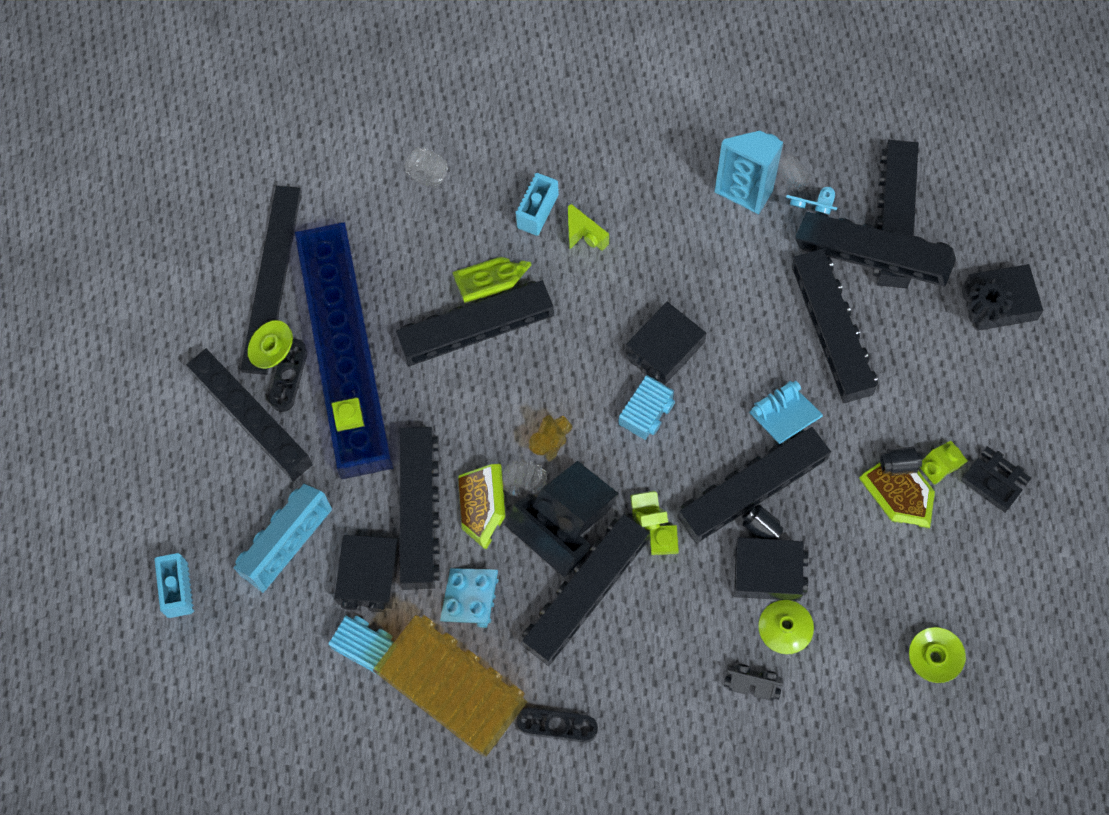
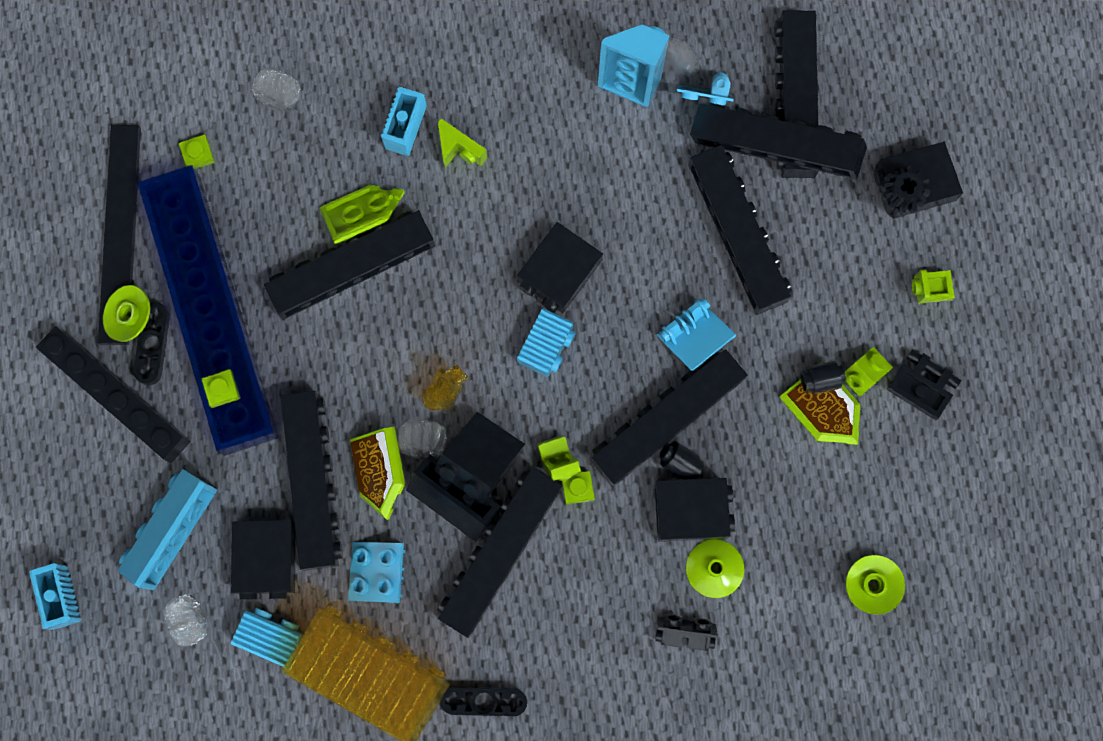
camera: 10 degrees left, 10 degrees up
(289, 619) = (185, 620): none -> clear gear
(350, 214) = (197, 152): none -> lime plate
(1010, 392) = (933, 286): none -> lime bracket

